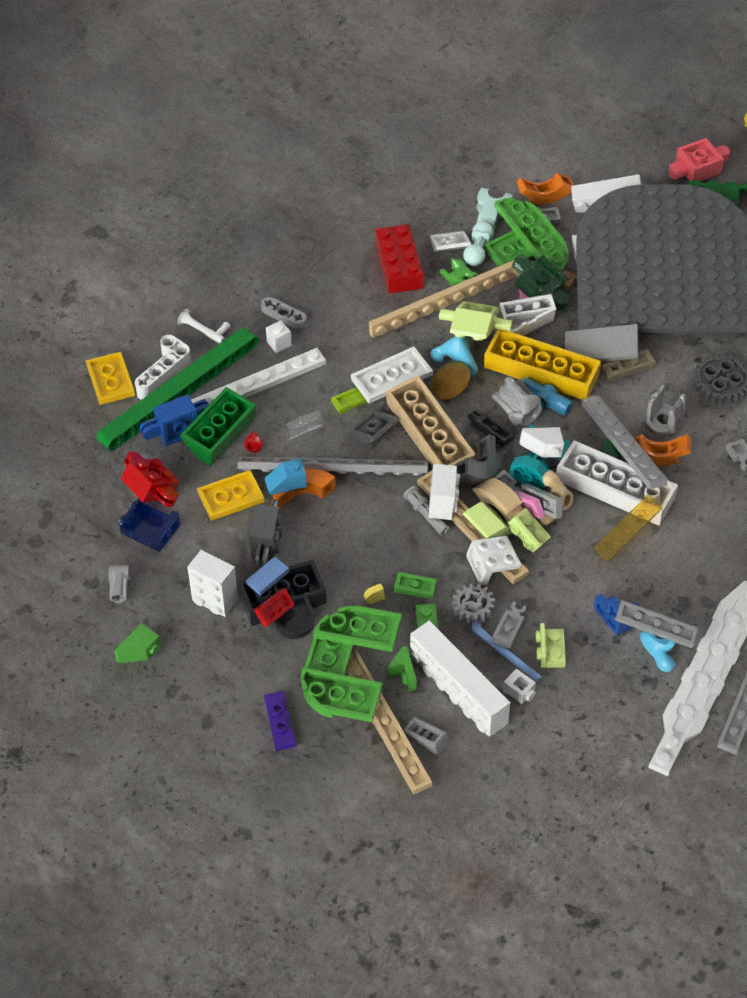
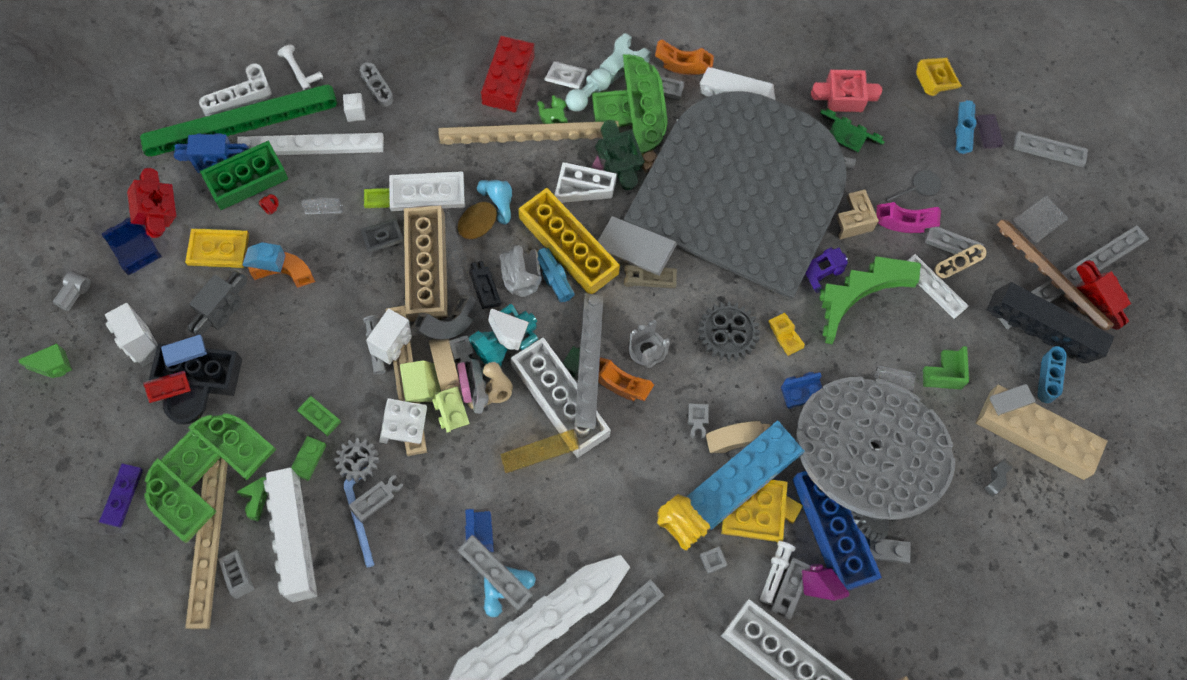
camera: 20 degrees right, 15 degrees up
(110, 378) = (188, 84): yellow plate -> none
(342, 466) = (322, 258): light grey plate -> none
(374, 594) = (277, 408): light yellow tile -> none
(475, 320) = (526, 172): yellowish green slope -> none
(519, 687) = (341, 561): white brick -> none
(551, 647) = (400, 538): yellowish green bracket -> none

